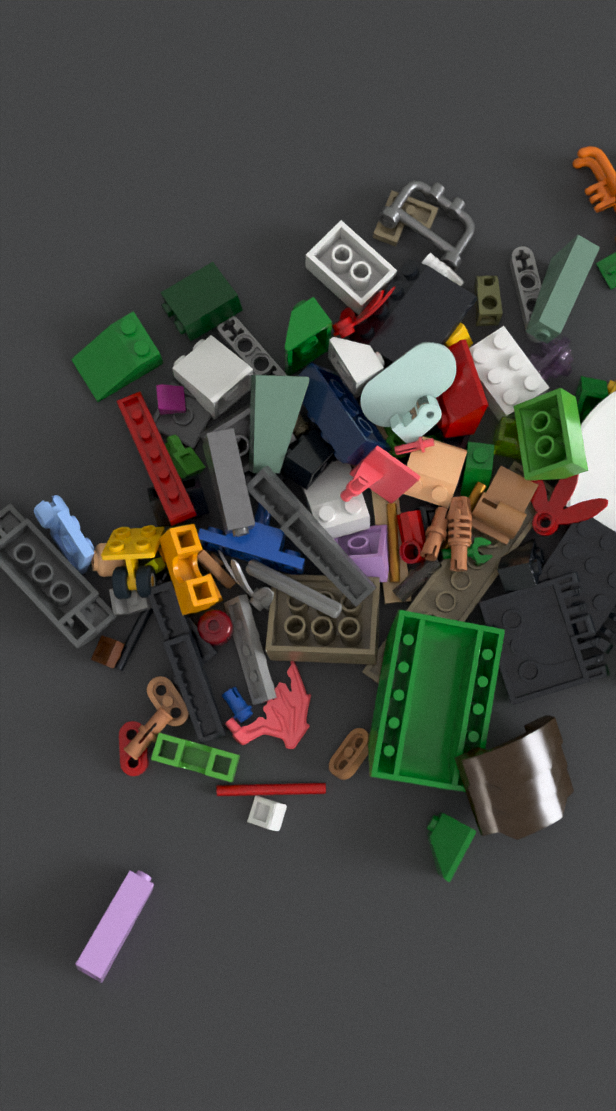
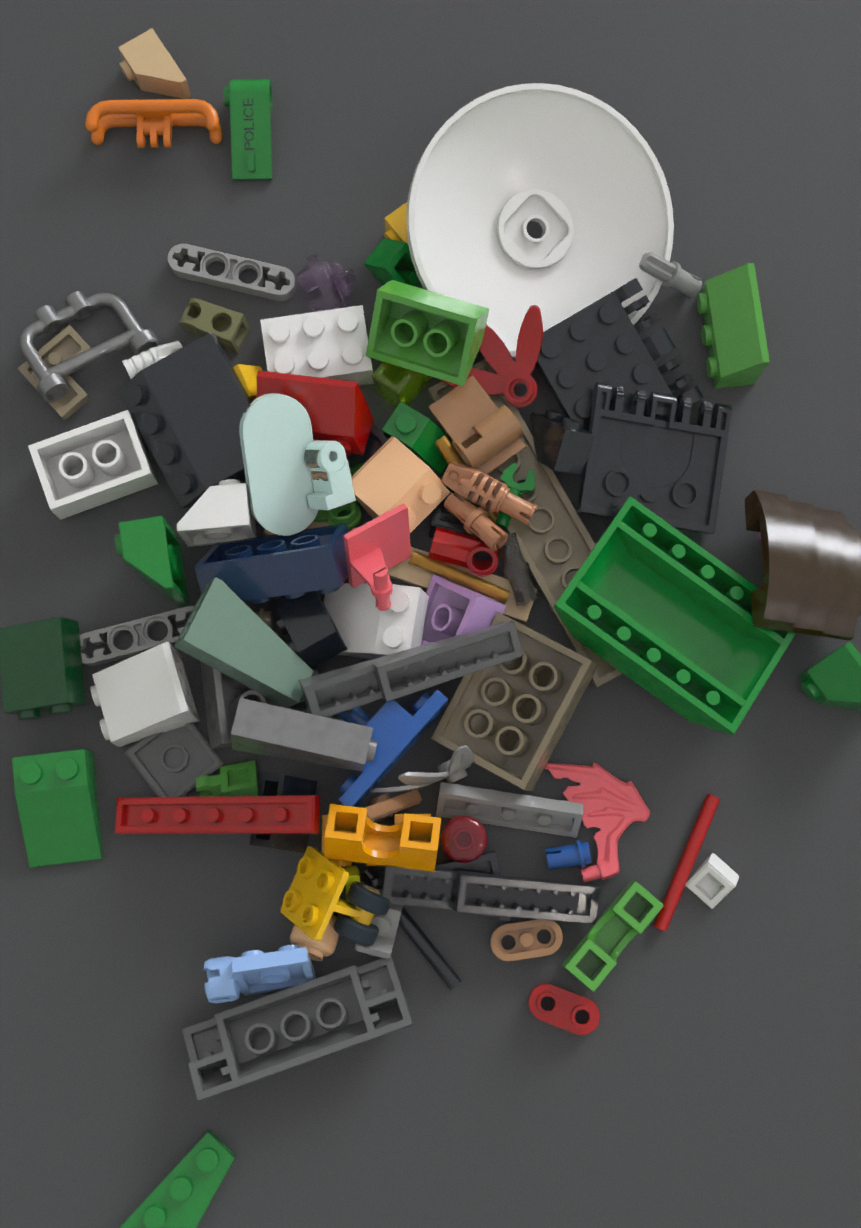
camera: 65 degrees left, 0 degrees up
(107, 651) = (431, 988): reddish brown plate -> none
(115, 926) = (771, 1126): lavender slope -> none
(134, 748) = (568, 1005): nougat pin -> none
(170, 399) = (148, 762): magenta slope -> none
(294, 588) = (463, 720): light grey axle -> none
(348, 318) = (166, 500): red plant -> none
(350, 754) = (687, 747): medium nougat plate -> none
(414, 446) = (359, 494): coral piece -> none
(561, 288) = (248, 232): sand green slope -> none

